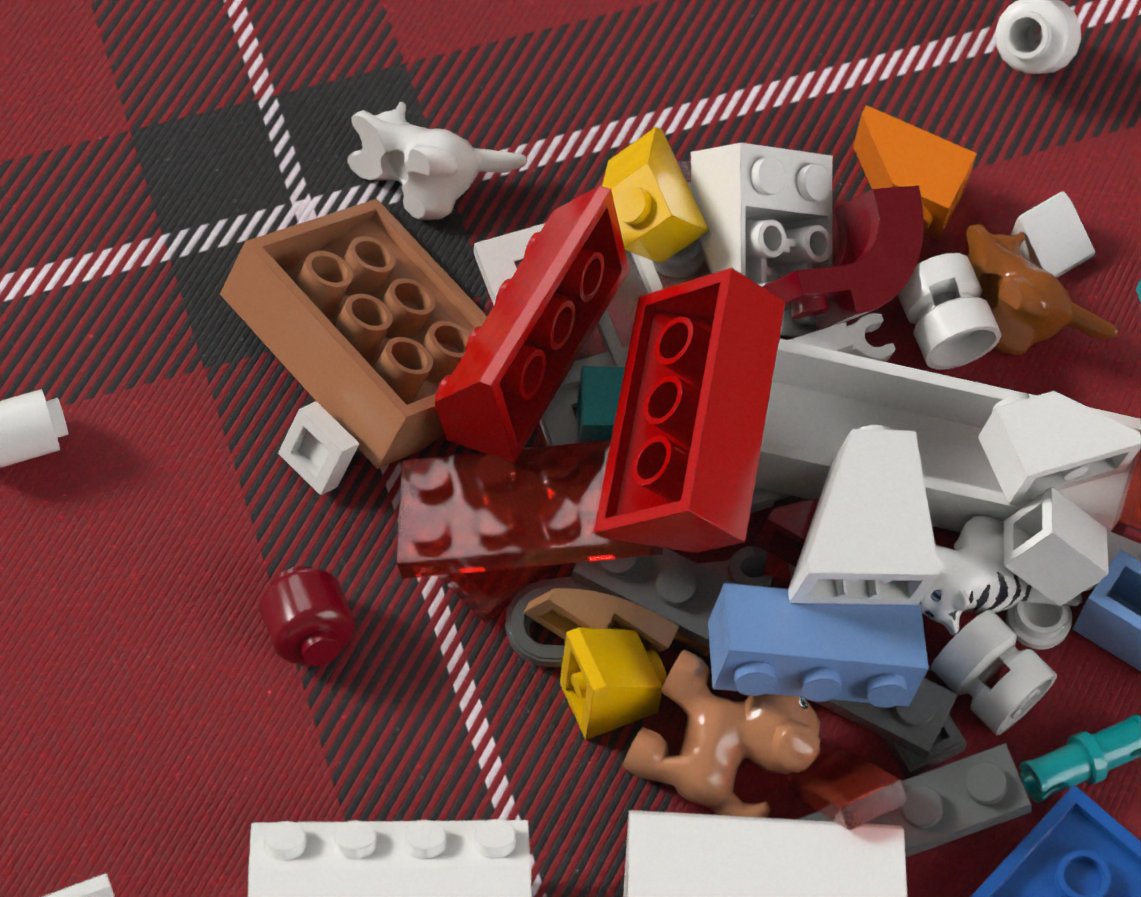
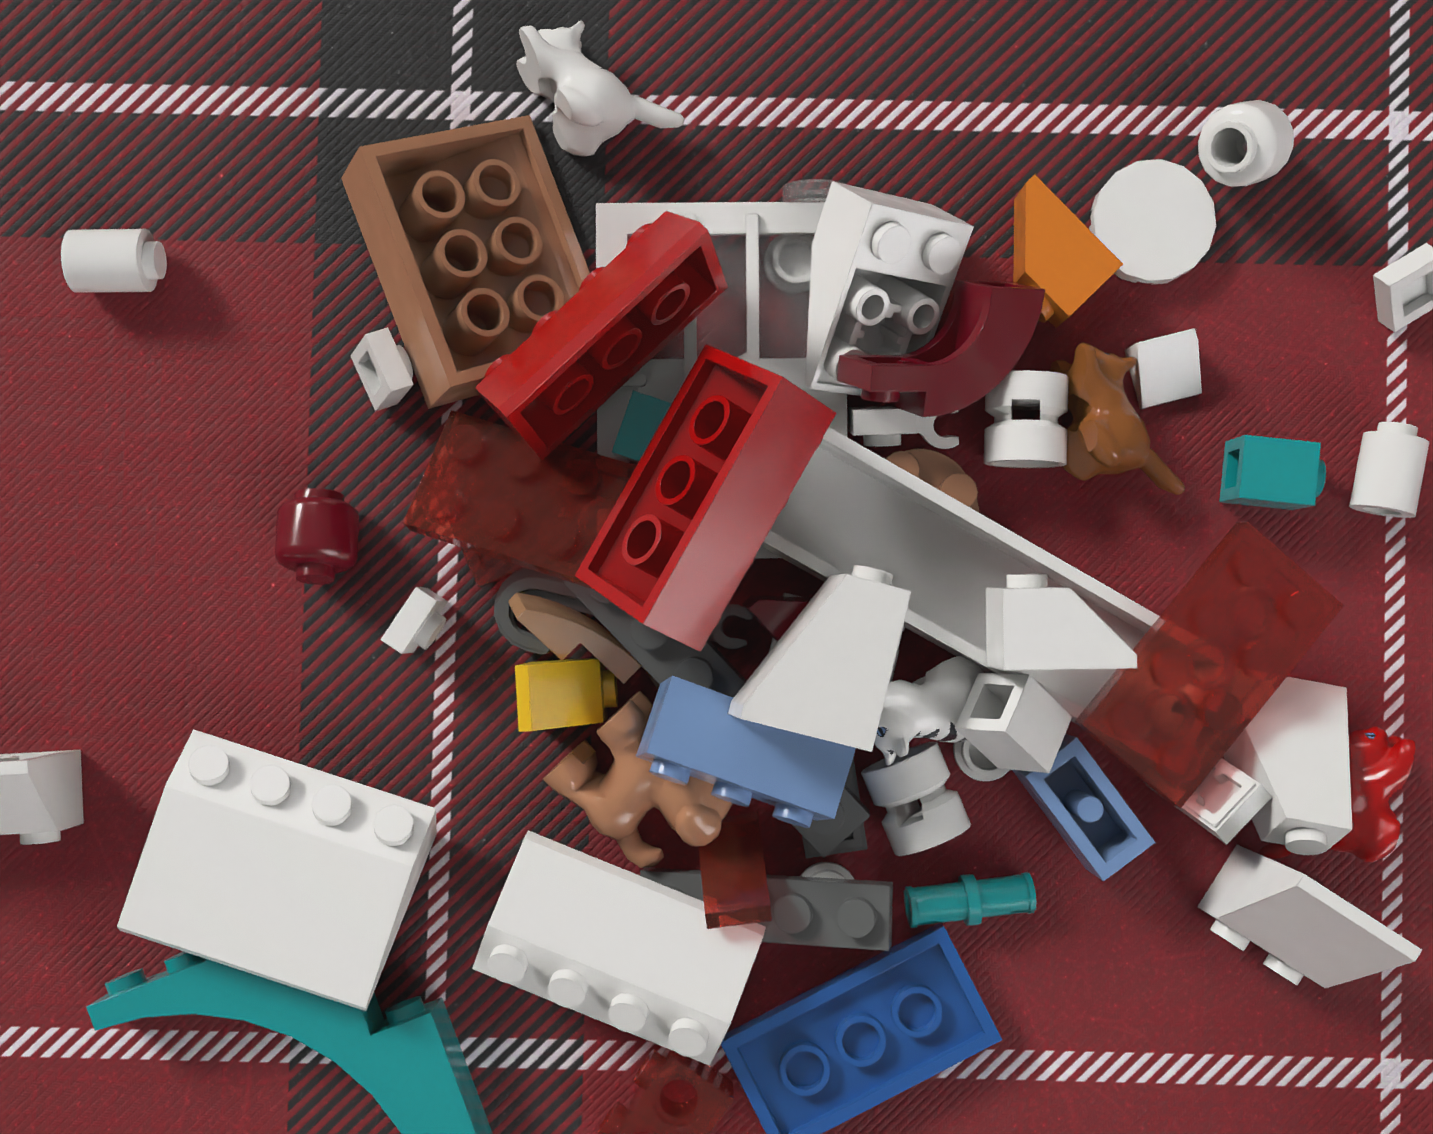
camera: 30 degrees right, 25 degrees up
(437, 666) = (416, 622): none -> white plate
(653, 199) = (772, 217): yellow slope -> none
(992, 119) = (1154, 220): none -> white tile

